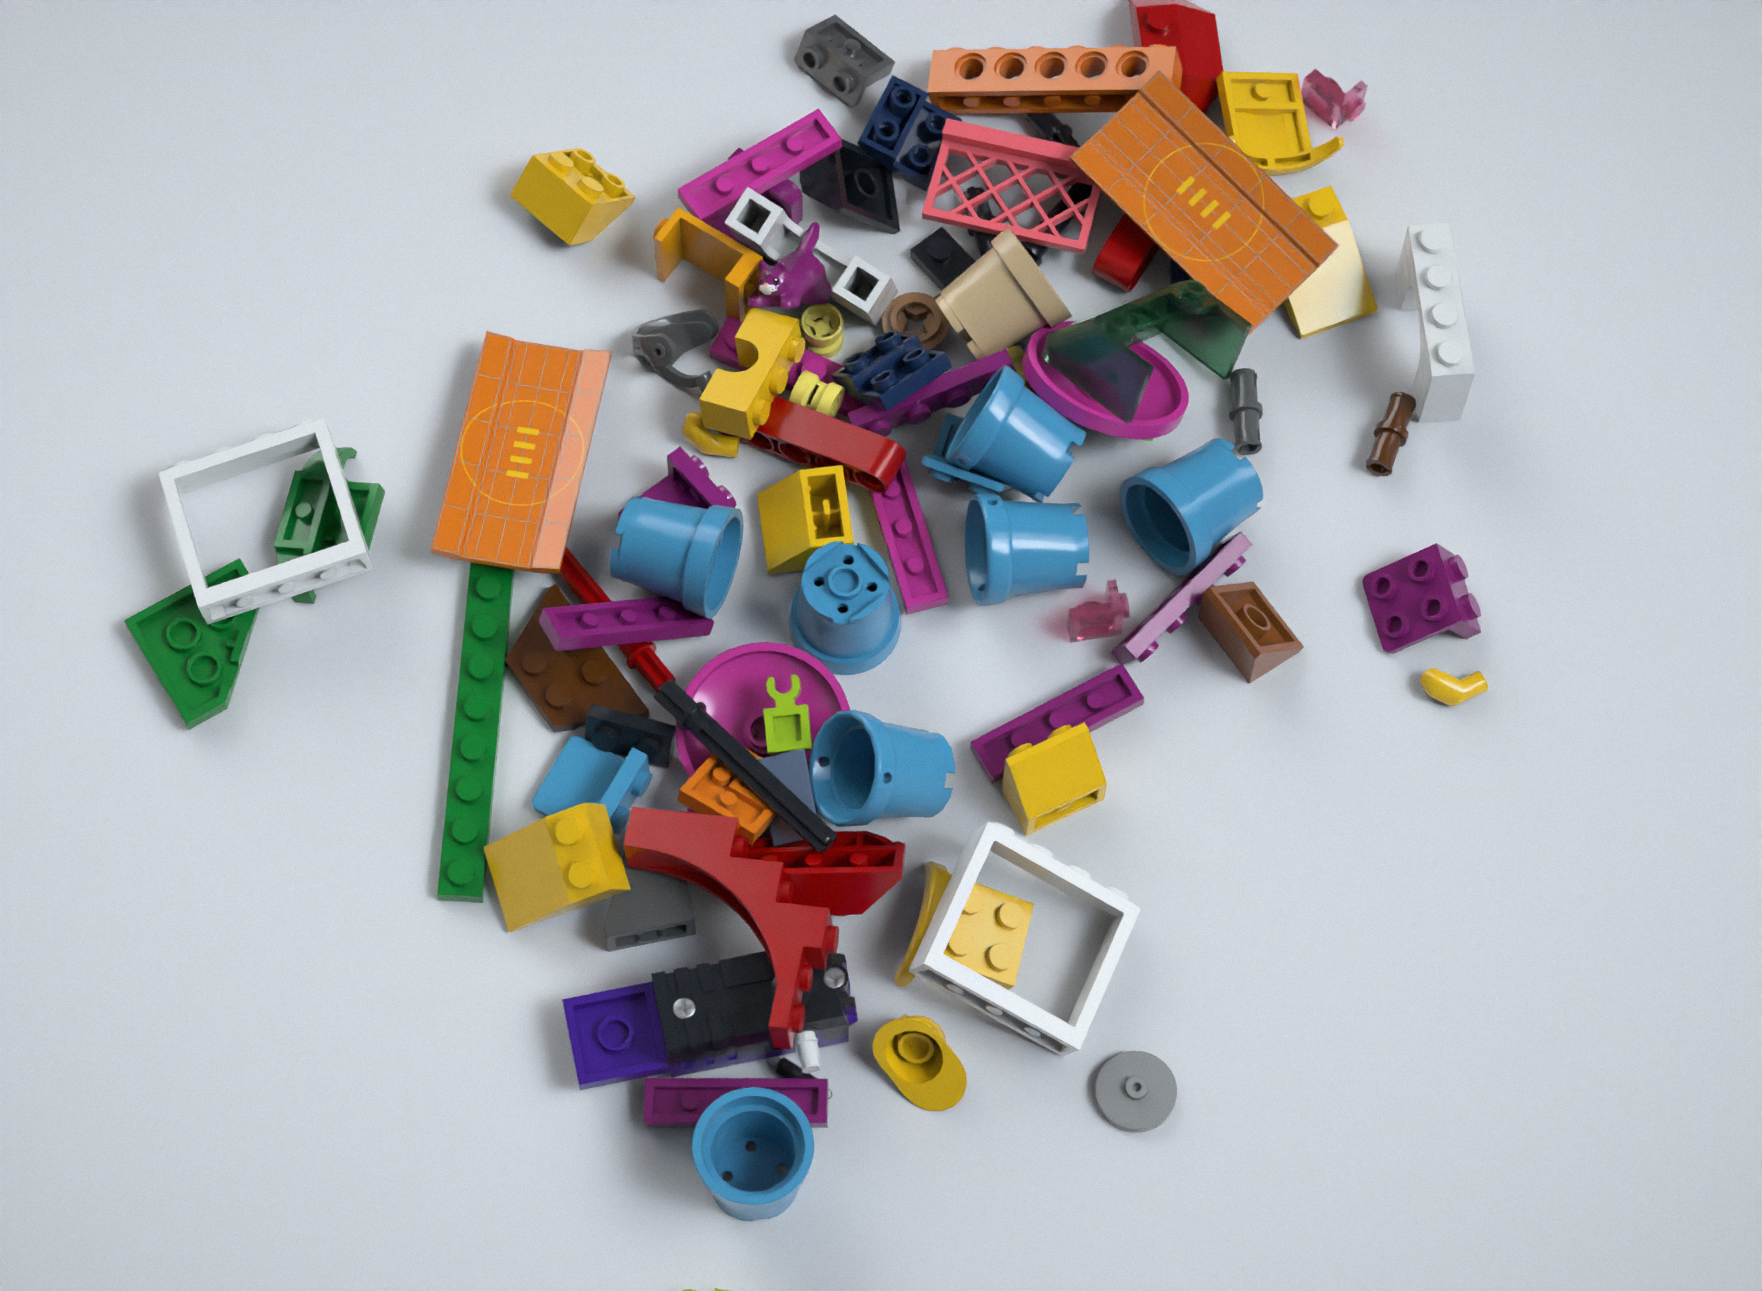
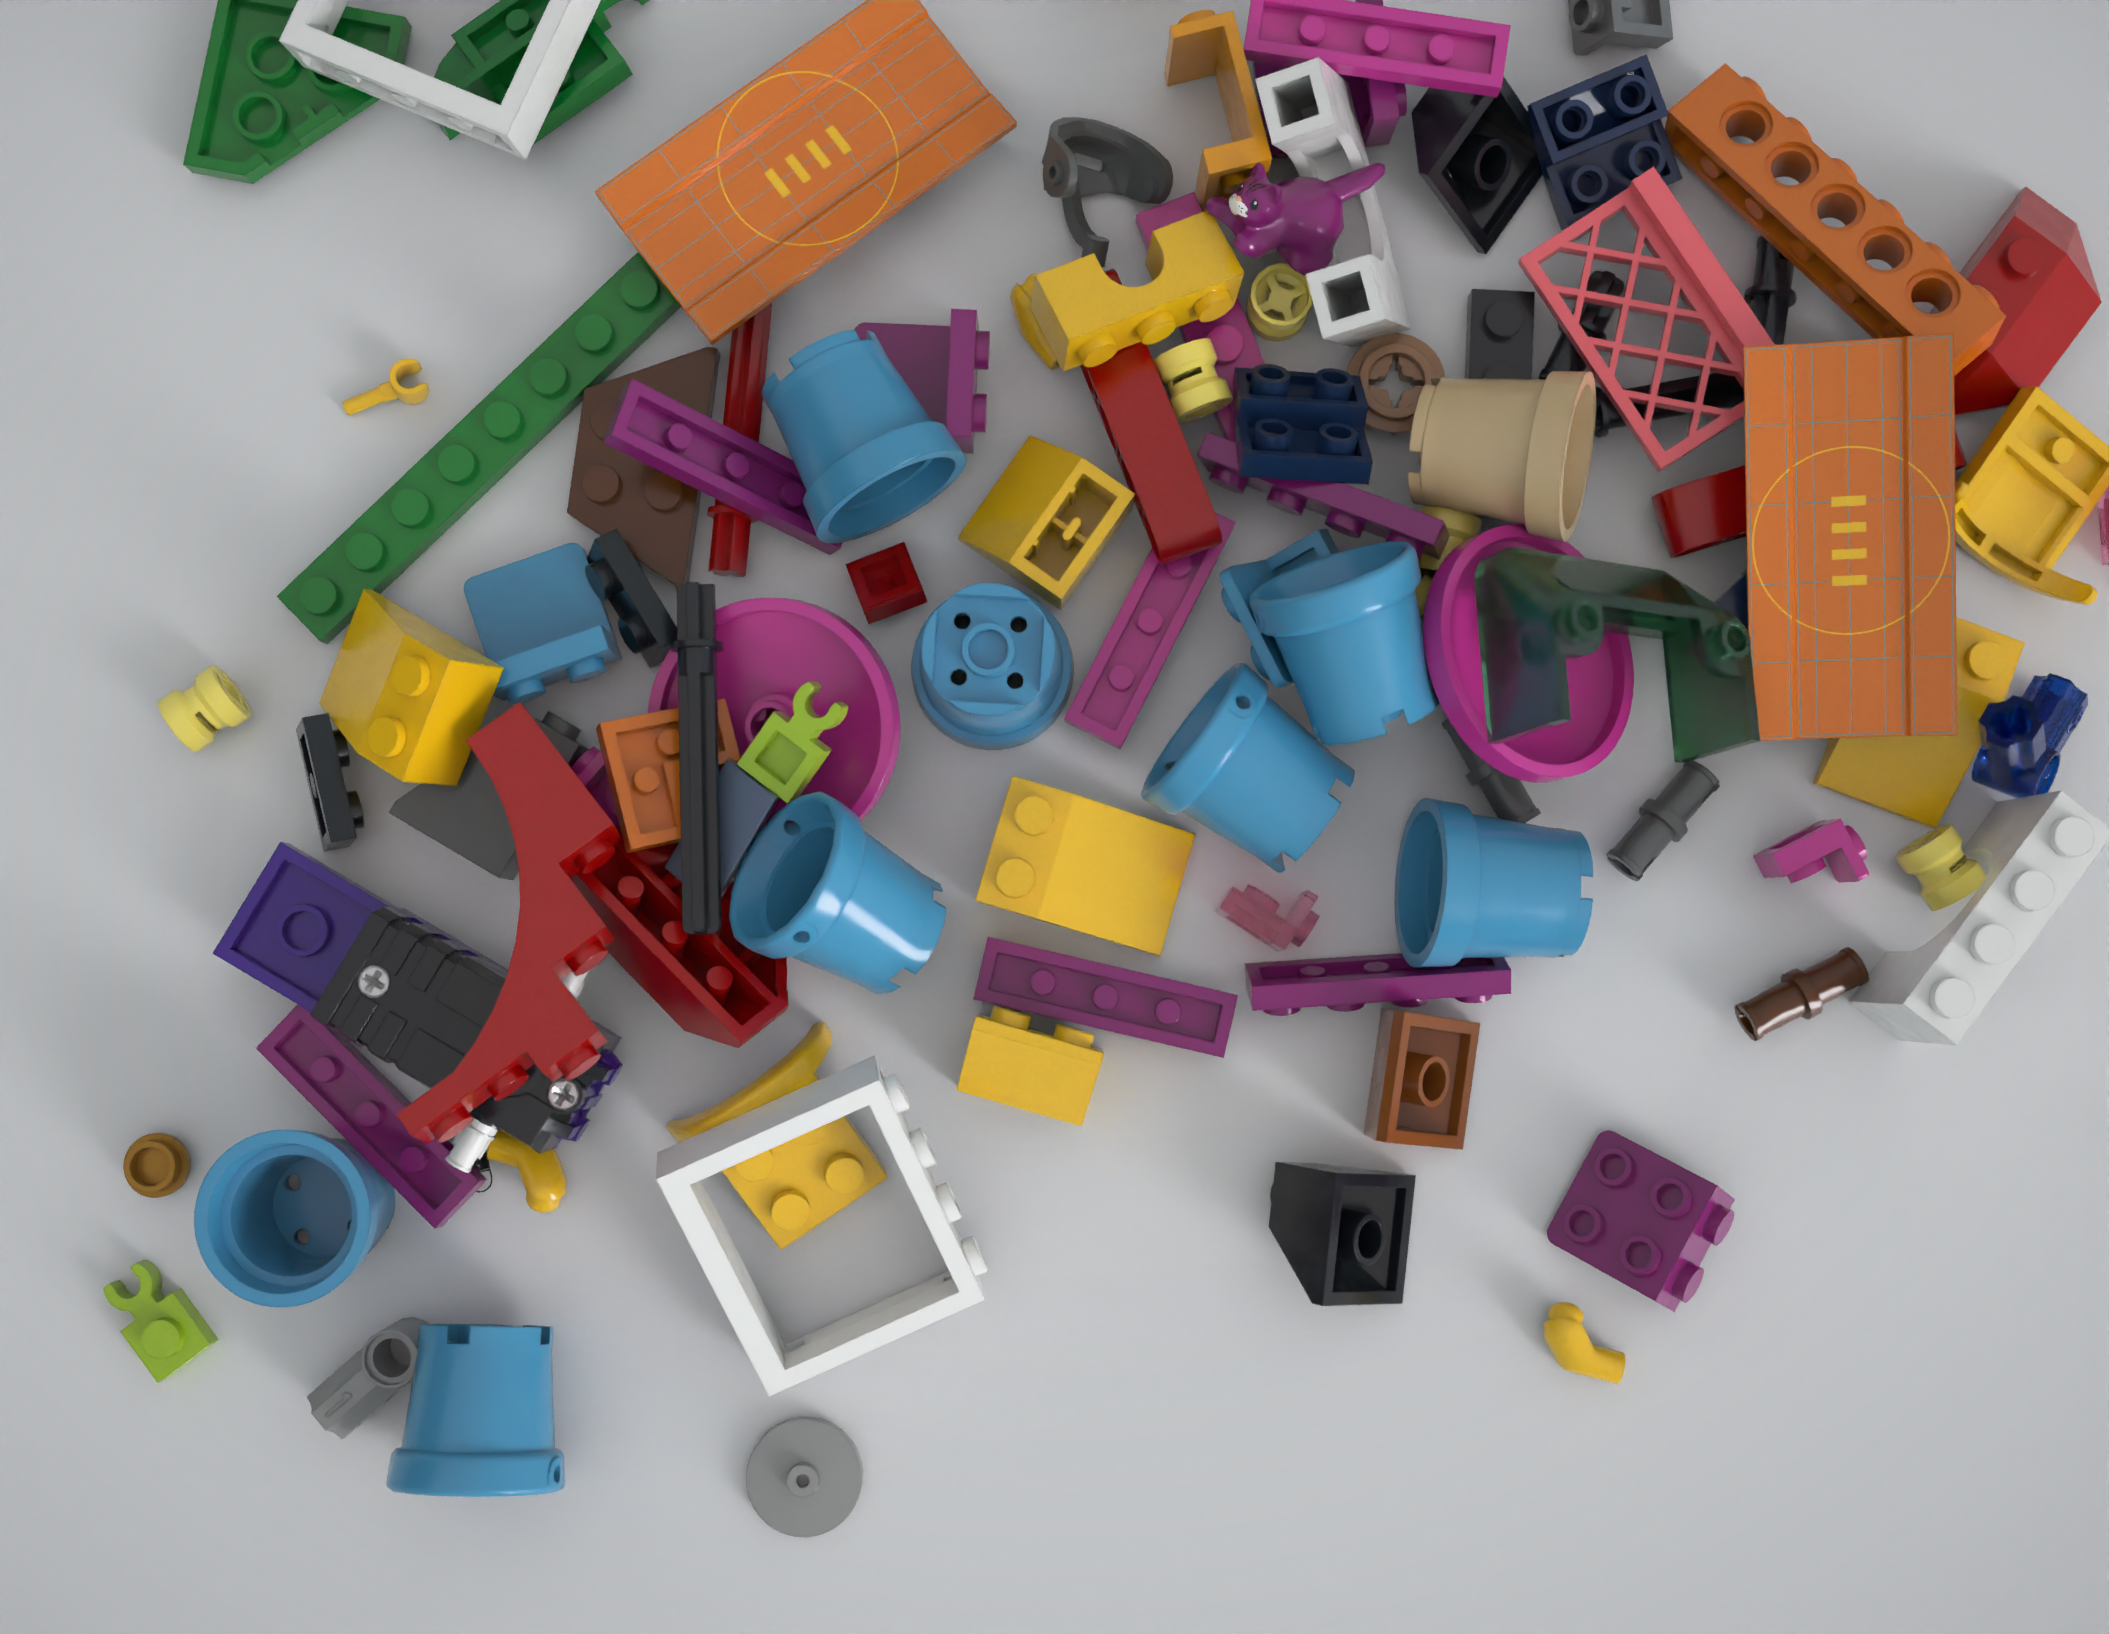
camera: 45 degrees right, 20 degrees up
(401, 744) = (391, 389): none -> yellow hand
(452, 979) = (204, 708): none -> light yellow wheel
(553, 959) = (323, 756): none -> black plate
(644, 1234) = (157, 1165): none -> pearl gold plate
(752, 621) = (886, 583): none -> red tile
(848, 1056) = (540, 1173): none -> yellow arm
(864, 1235) = (365, 1380): none -> light grey piece
(920, 1062) = (601, 1242): yellow piece -> none
(942, 1184) = (480, 1414): none -> dark azure piece
(982, 671) = (1085, 866): none -> yellow slope
(1131, 455) = (1503, 792): none -> dark grey pin
(1280, 724) = (1343, 1230): none -> black slope
(1334, 355) = (1803, 853): none -> dark pink bracket
(1374, 228) = (2026, 736): none -> clear blue piece
(1396, 321) = (1941, 867): none -> light yellow wheel

